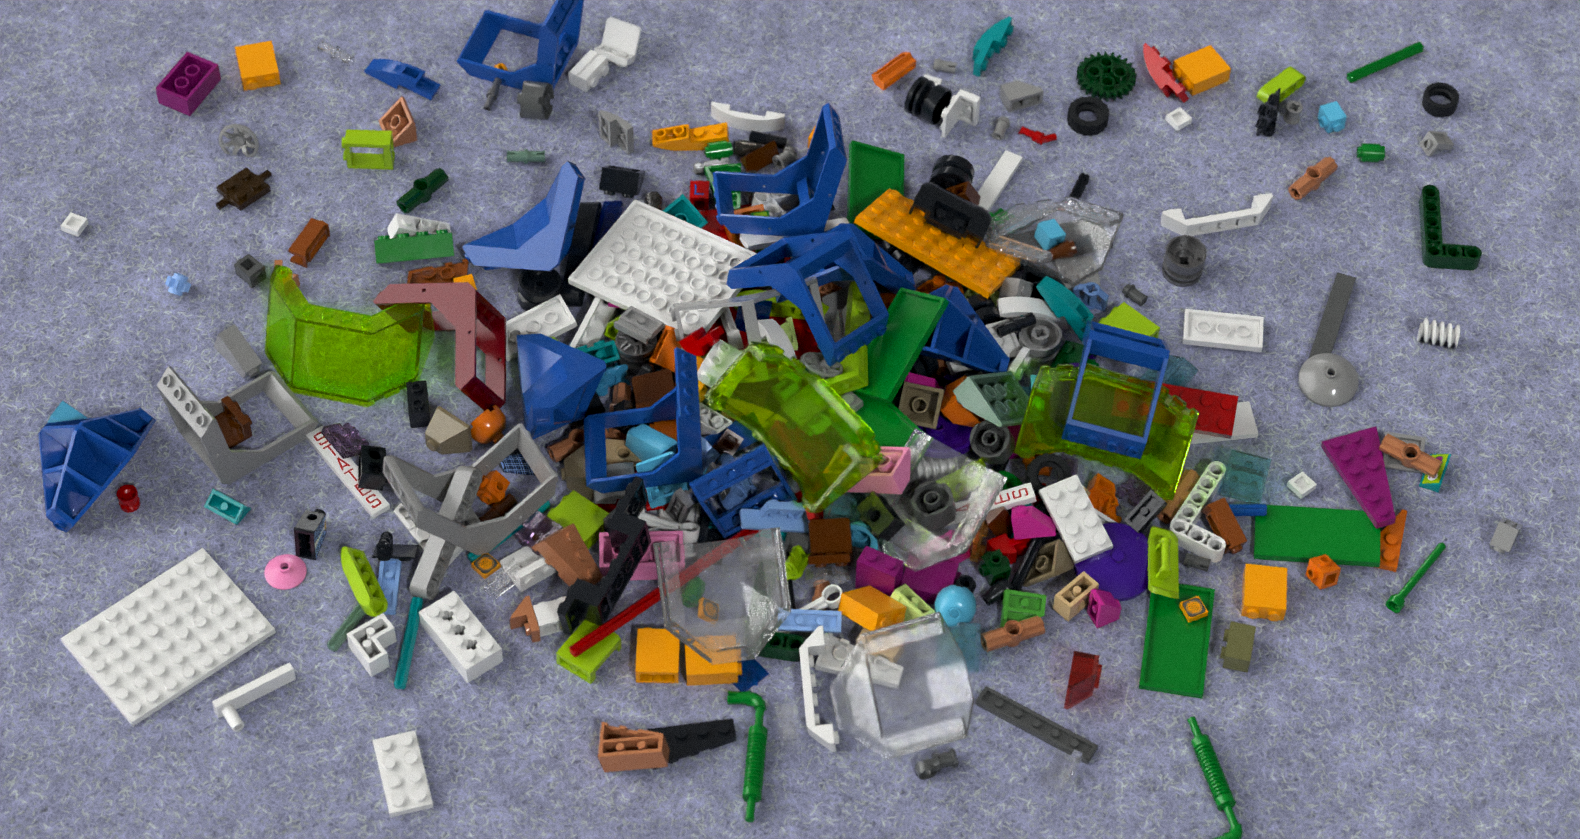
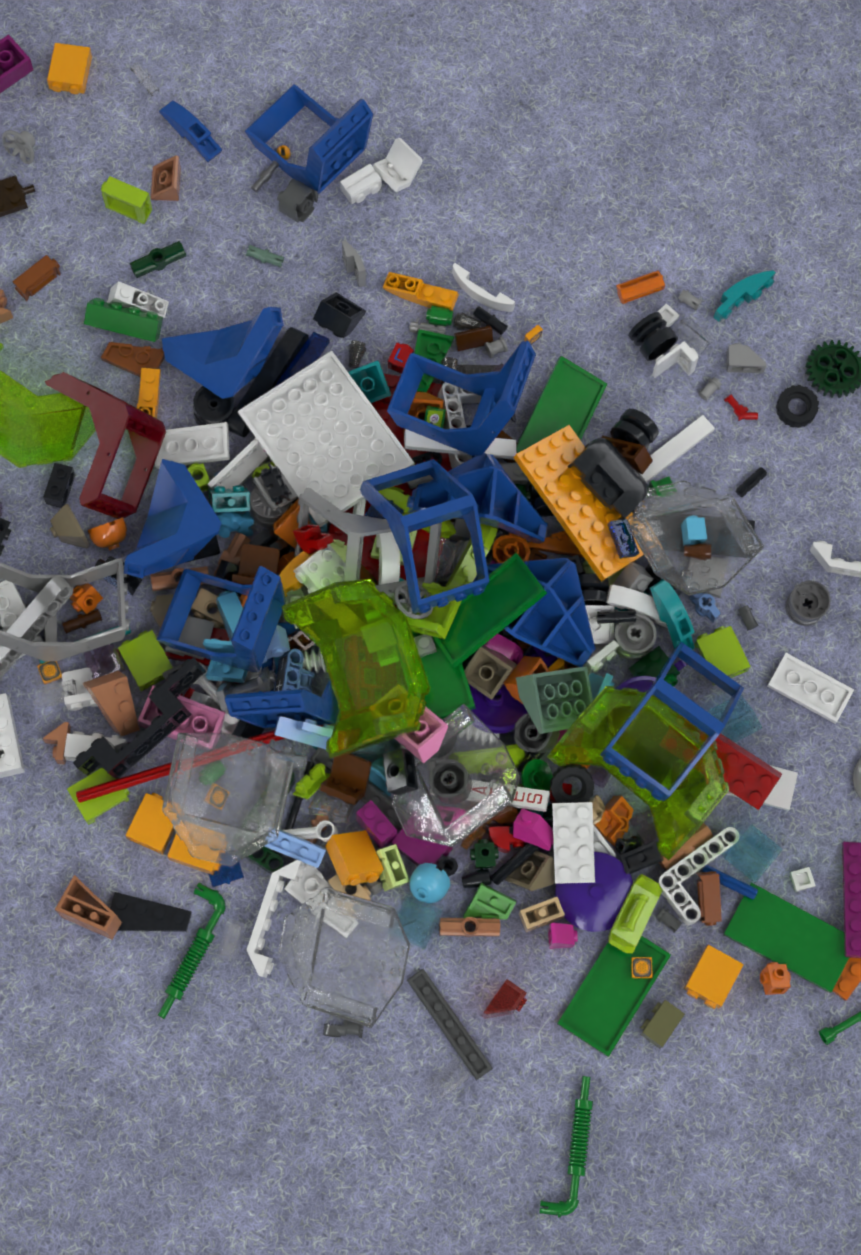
camera: 20 degrees right, 20 degrees up
(645, 321) = (273, 477): none -> black hinge
(989, 256) = (623, 538): none -> clear blue plate
(1121, 510) = (625, 842): none -> black bush

